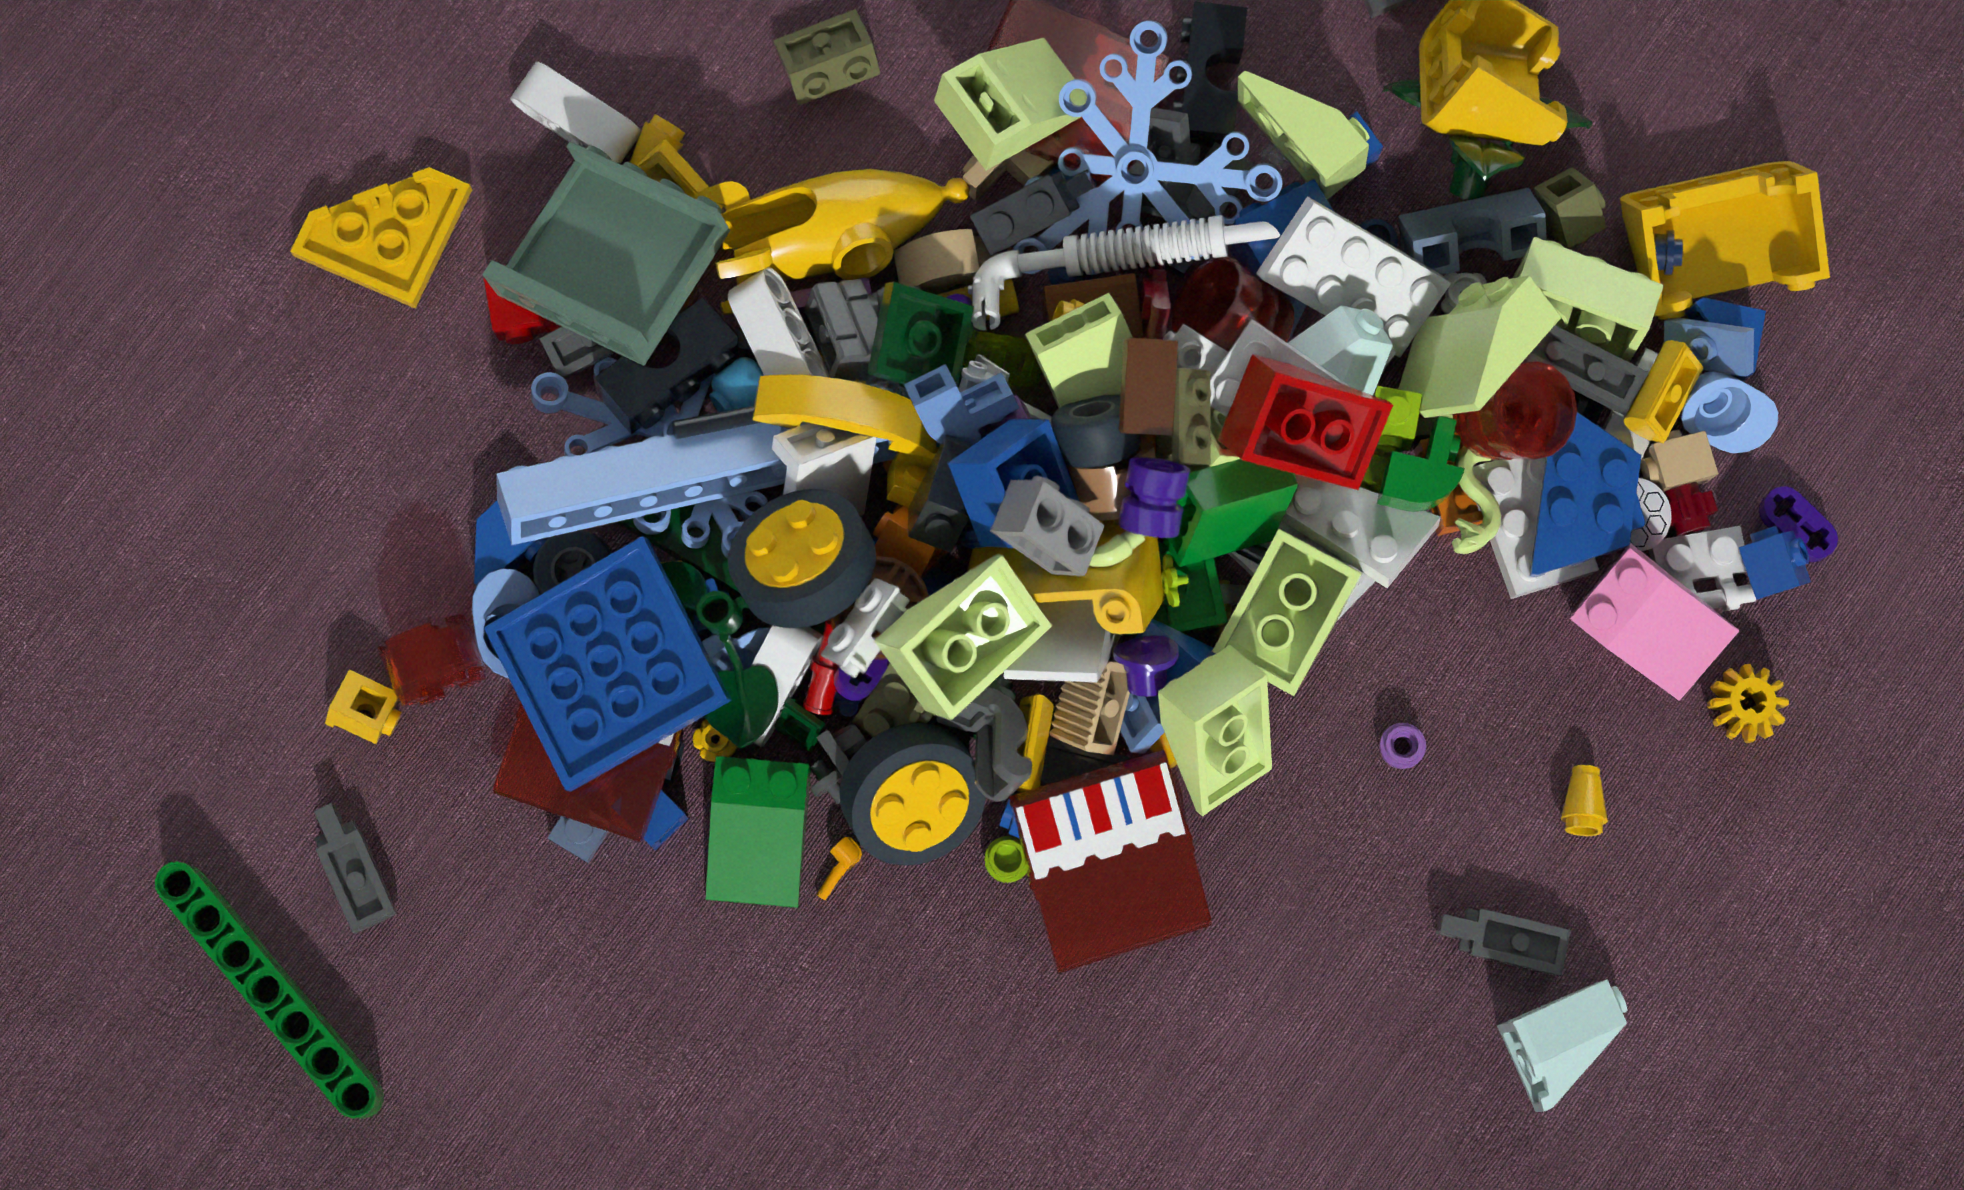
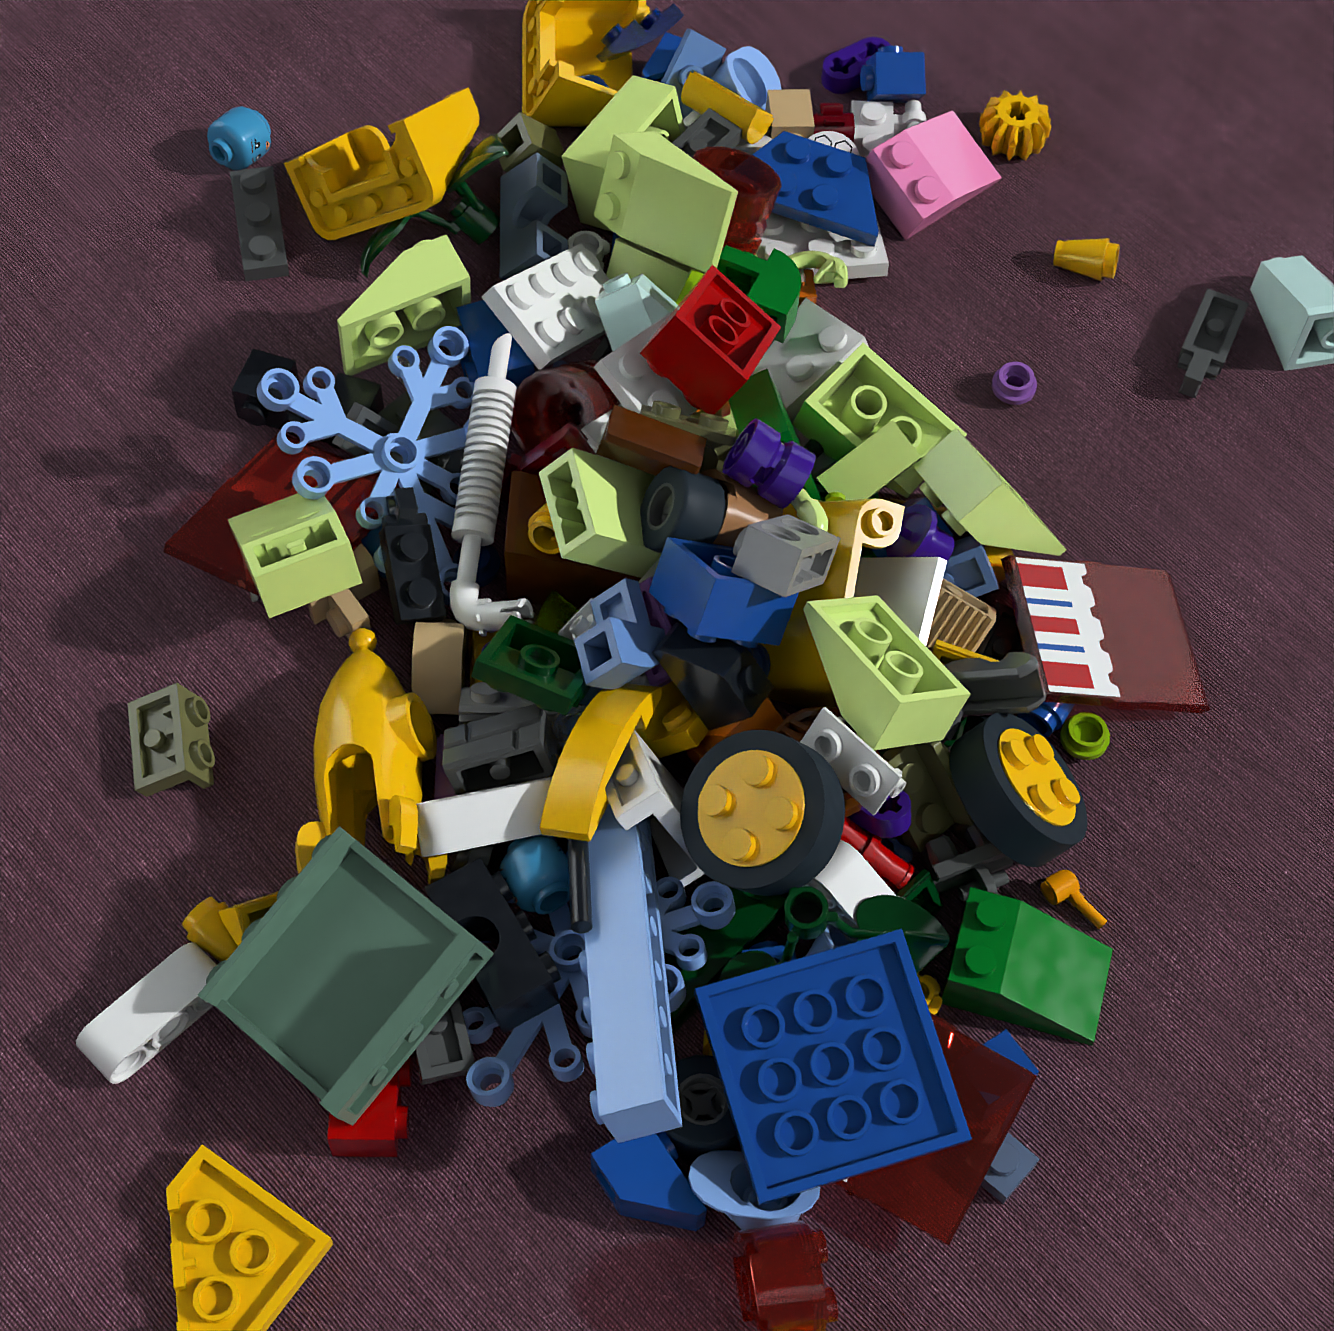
camera: 80 degrees left, 20 degrees down
(1224, 605) = (871, 464): none -> yellowish green tile
(1751, 276) = (628, 39): none -> clear blue slope

